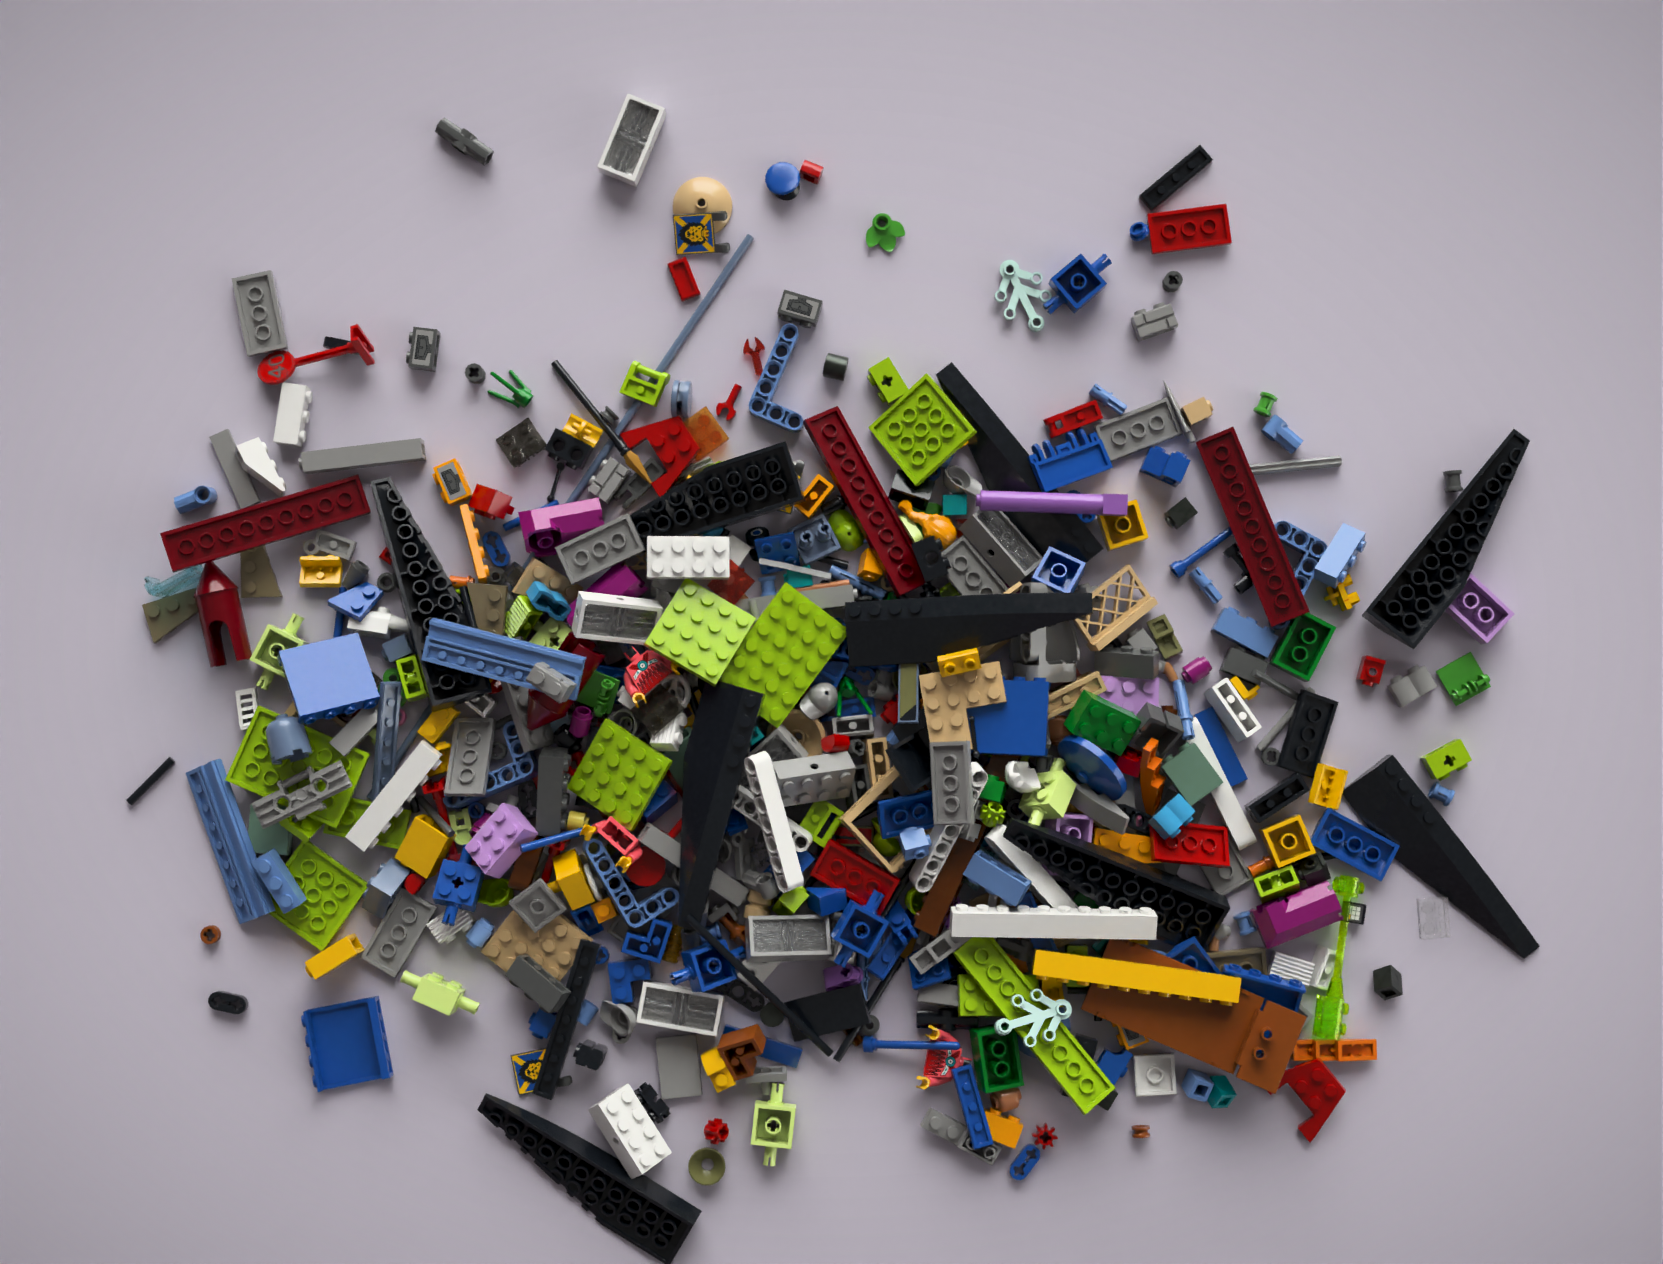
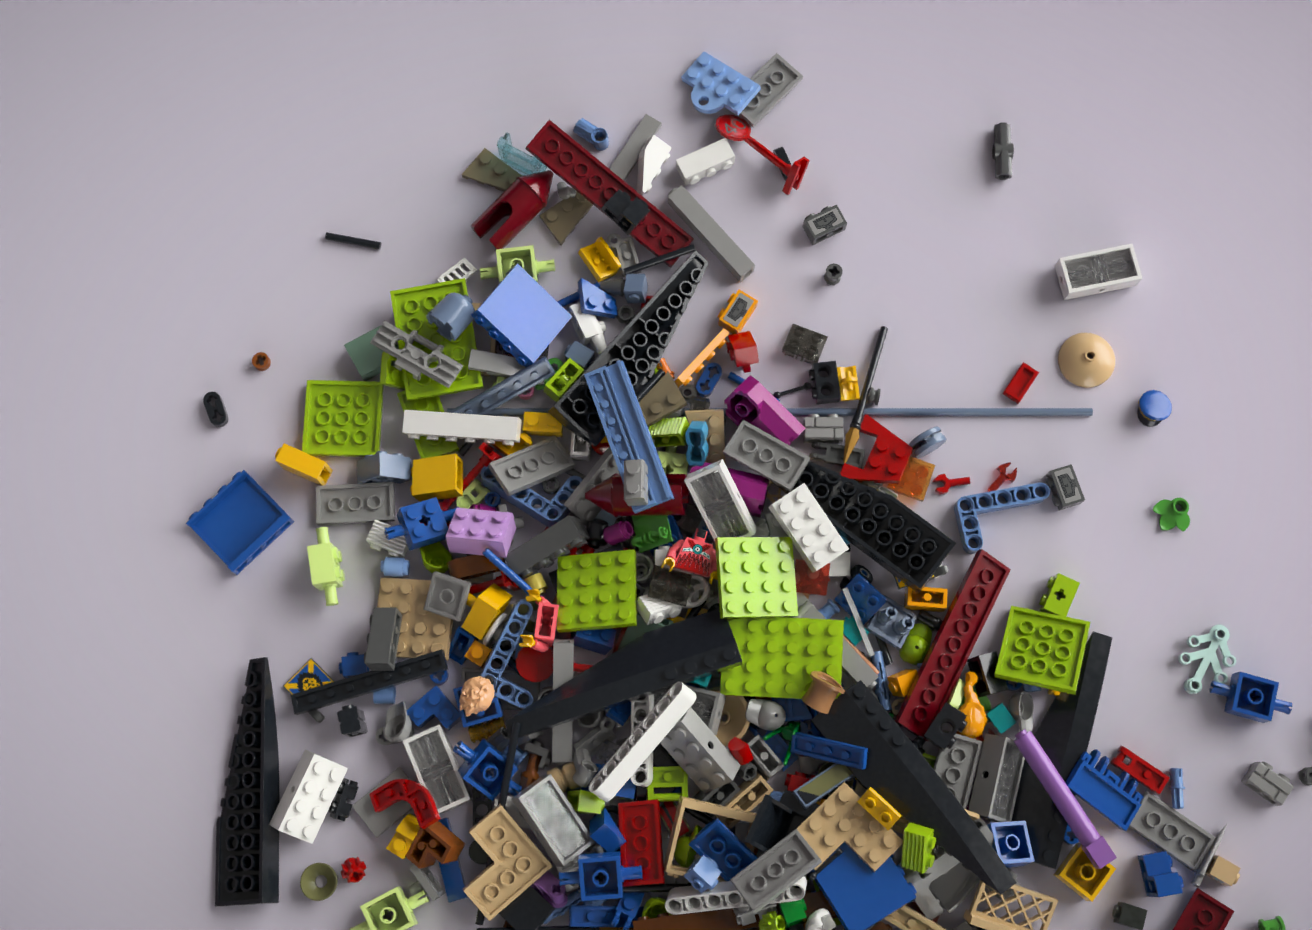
camera: 50 degrees right, 10 degrees down
(227, 352) = (719, 86): none -> light blue plate
(229, 840) = (344, 328): medium blue plate -> none
(234, 561) = (565, 191): none -> light grey arm
(279, 880) = (337, 382): medium blue brick -> none
(293, 522) = (624, 212): none -> black brick
(357, 519) = (660, 259): none -> black bar
(369, 558) = (635, 288): none -> sand blue brick
(414, 883) = (402, 489): red brick -> none
(435, 816) = (466, 470): dark grey bar -> none
(521, 396) = (840, 320): green plant -> none
(524, 800) = (526, 530): black beam -> none
(640, 935) = (476, 695): none -> light nougat hair
(641, 389) = (912, 407): lime plate -> none
(684, 1042) = (408, 791): none -> red plate
(696, 233) = (1063, 368): flag -> none
(803, 993) = (514, 867): none -> tan plate
(811, 172) = (1176, 424): red brick -> none
(833, 642) = (822, 692): none -> medium nougat piece
(835, 366) = (1040, 546): pearl dark grey piece -> none
(884, 669) = (829, 750): none -> blue tile
(1011, 653) = (918, 848): none -> lime brick

